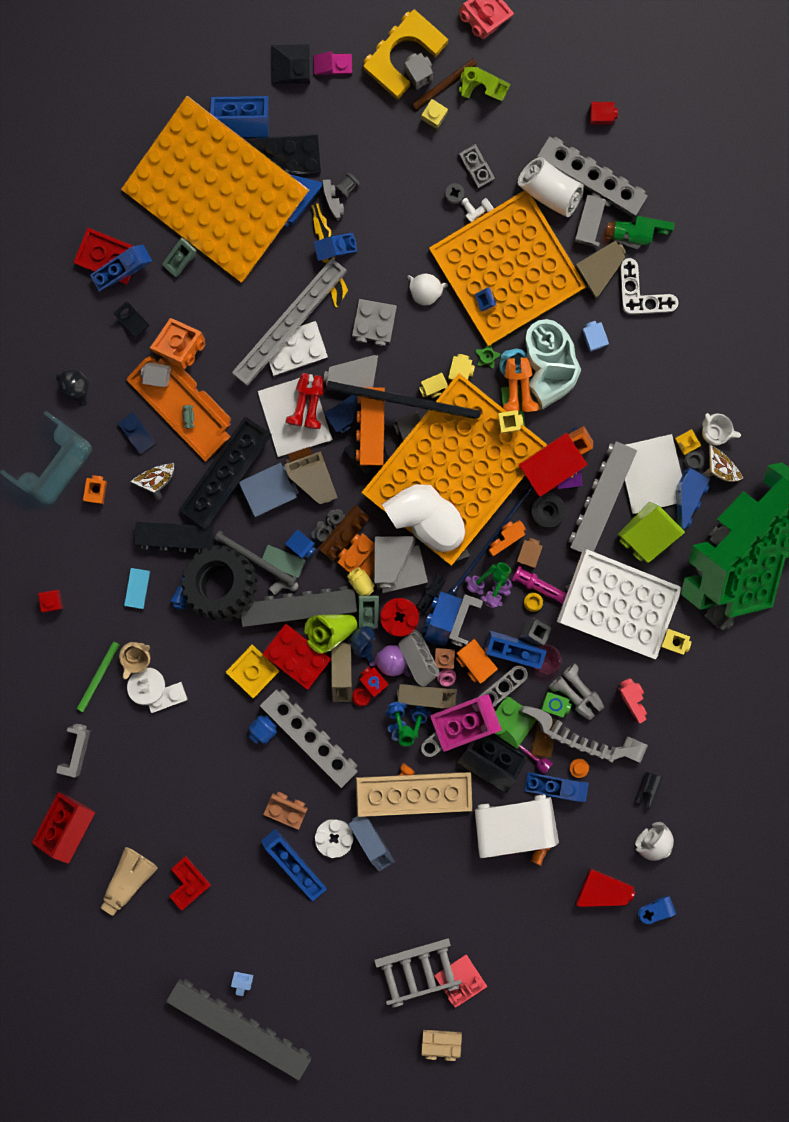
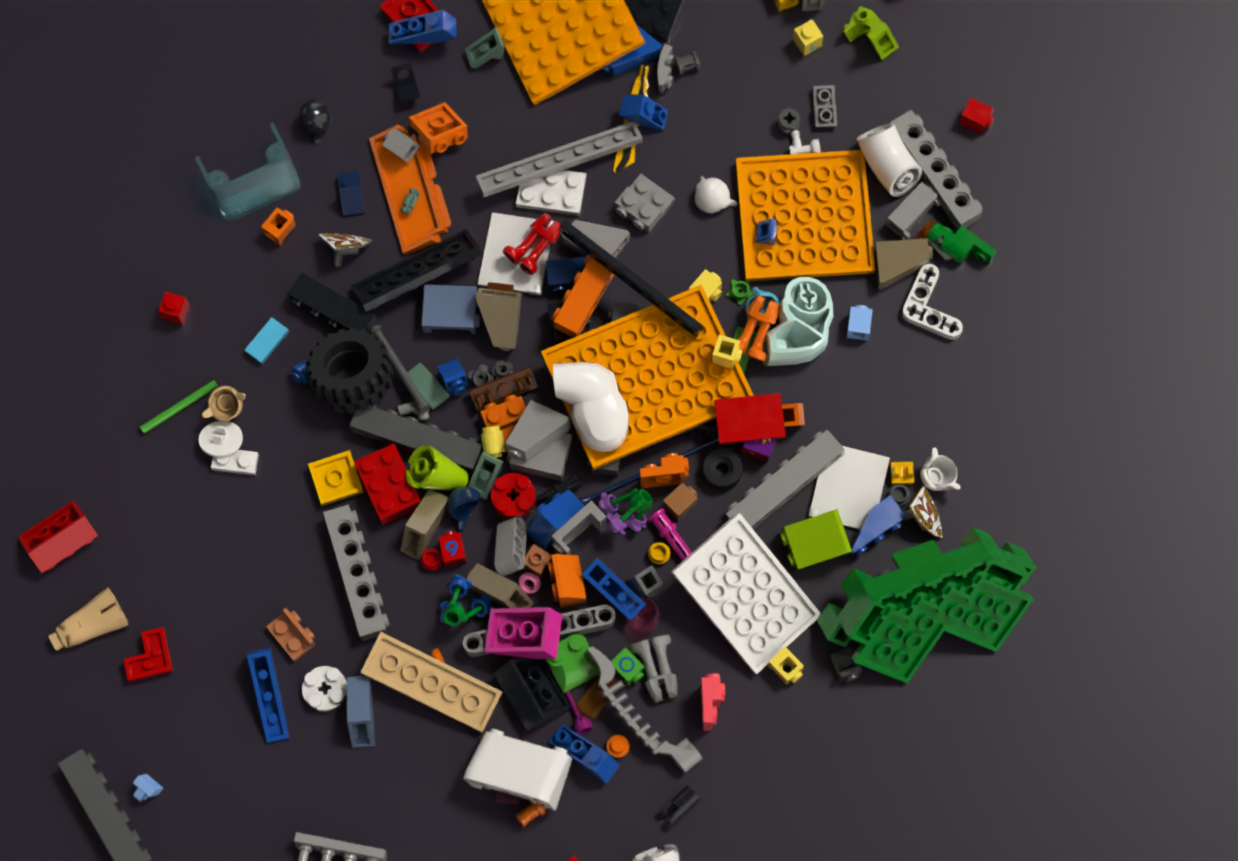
camera: 30 degrees right, 15 degrees down
(79, 751) = (115, 466): light grey panel -> none
(262, 729) = (313, 539): blue head -> none
(391, 661) = (481, 538): medium lavender hair -> none
(433, 386) = (670, 287): light yellow brick -> none
(442, 85) = (827, 17): reddish brown bar -> none

